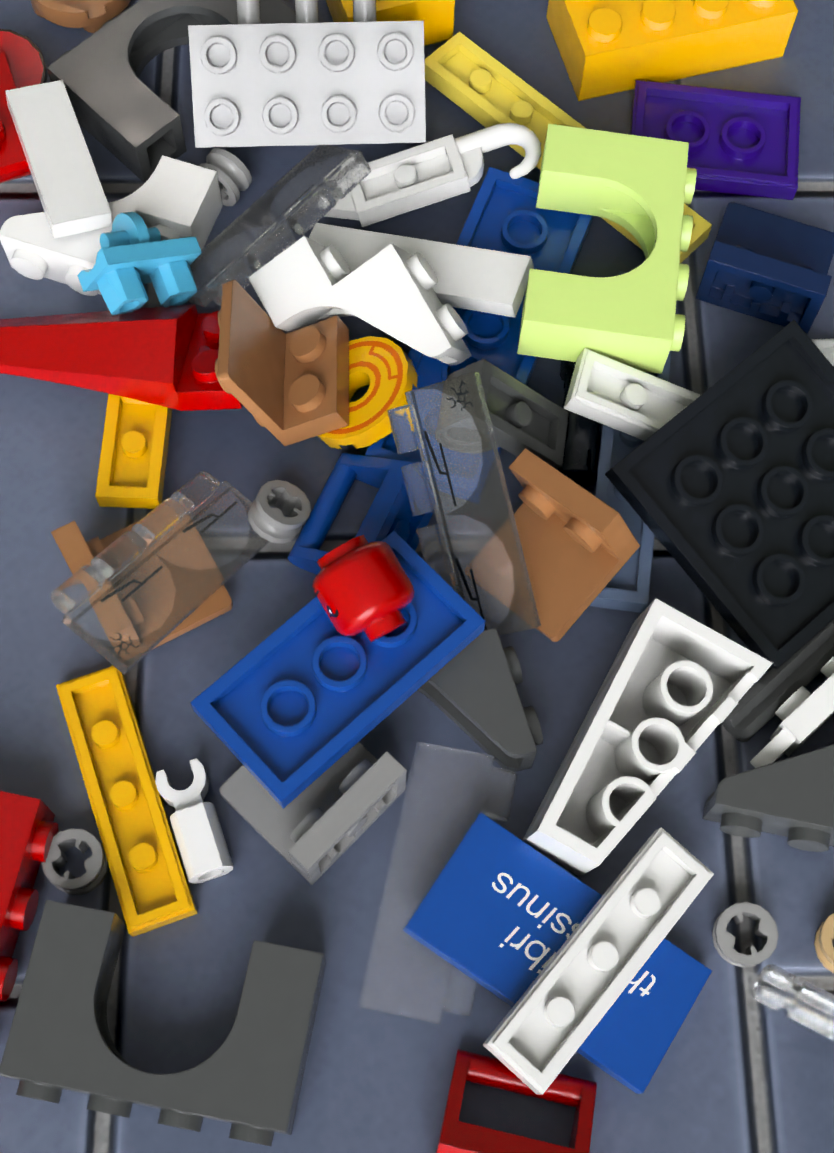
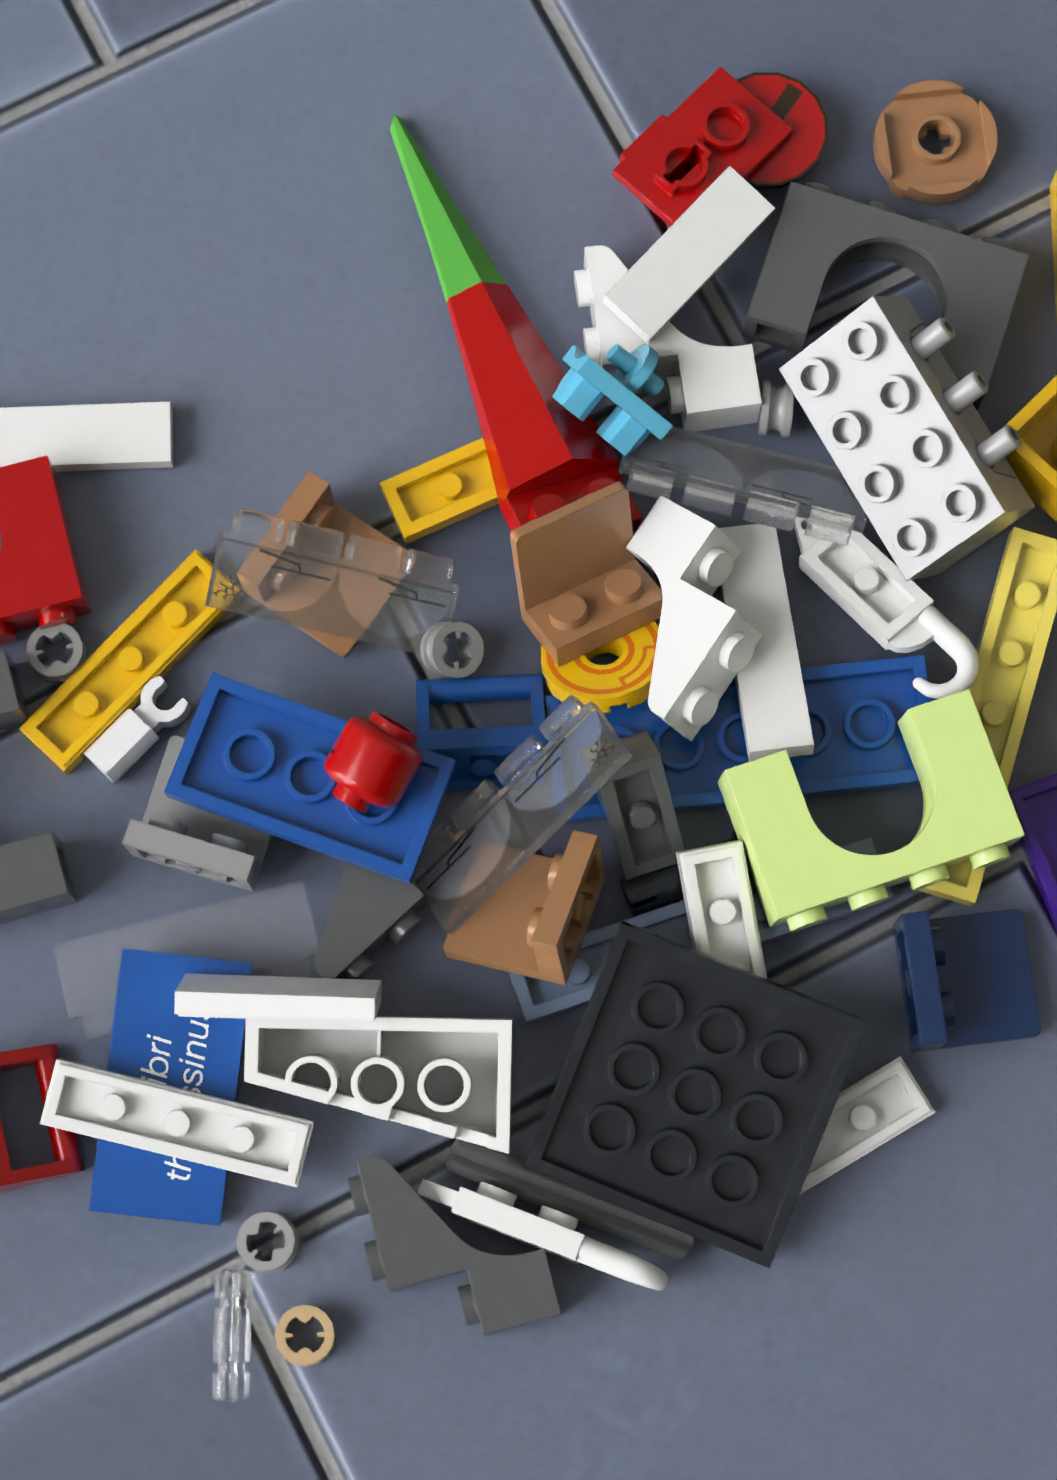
camera: 65 degrees right, 10 degrees up
(534, 794) = (278, 998): none -> white tile

